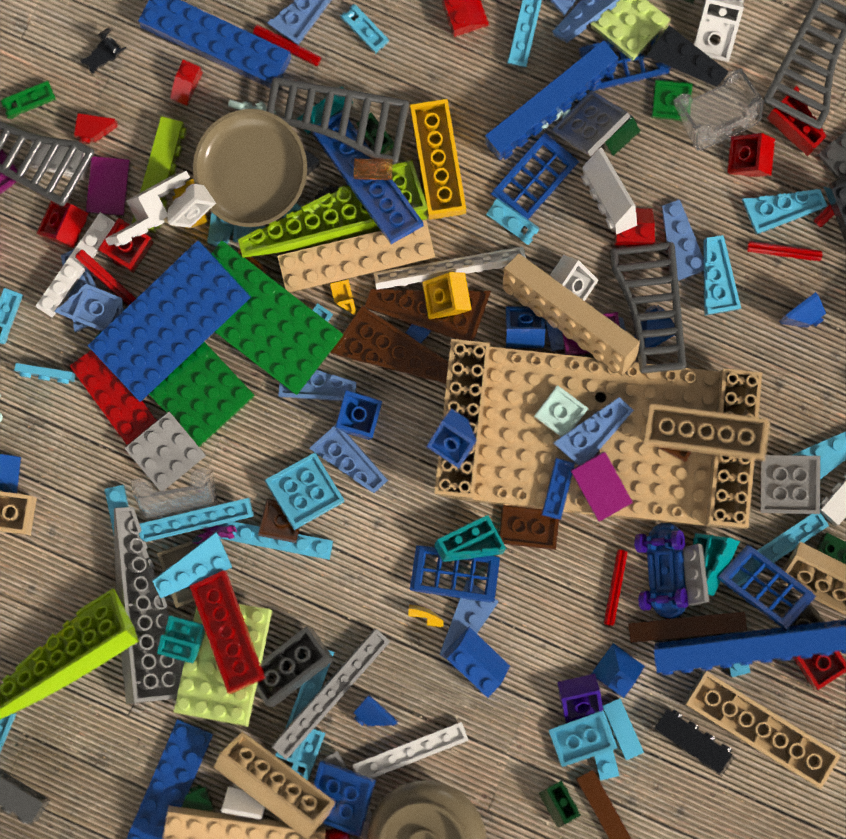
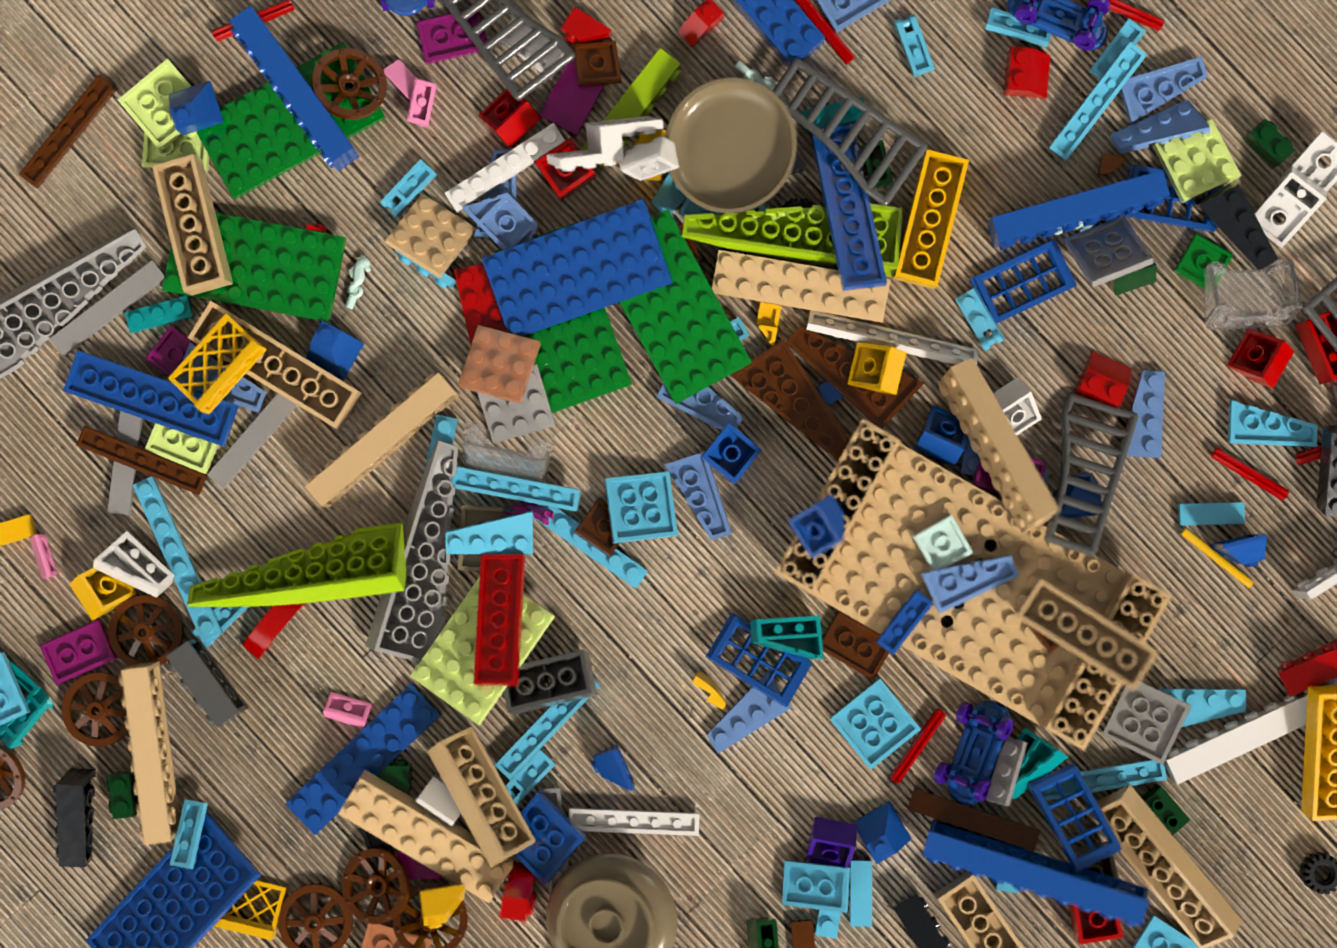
camera: 25 degrees right, 5 degrees up
(38, 345) = (430, 235): none -> tan plate
(40, 723) = (270, 627): none -> red slope
(68, 528) = (382, 440): none -> tan brick
(105, 277) = (530, 194): red axle -> none
(115, 150) = (597, 63): none -> reddish brown tile
(133, 765) = (347, 710): none -> bright pink slope
(138, 424) = (499, 364): none -> nougat plate
(181, 639) = (449, 605): teal slope -> none
(330, 693) = (578, 727): light grey plate -> none
(373, 169) = (858, 201): clear orange plate -> none
(477, 662) = (742, 761): blue slope -> none
(562, 54) = (1109, 163): none -> dark orange tile
(572, 584) = (875, 723): none -> medium azure plate
(601, 486) = (950, 640): magenta tile -> none
(609, 192) = (1095, 334): white slope -> none
(719, 282) = (1168, 473): medium azure wing -> none
(768, 296) = (1211, 513): none -> medium azure tile
(789, 329) = (1217, 557): none -> yellow bar

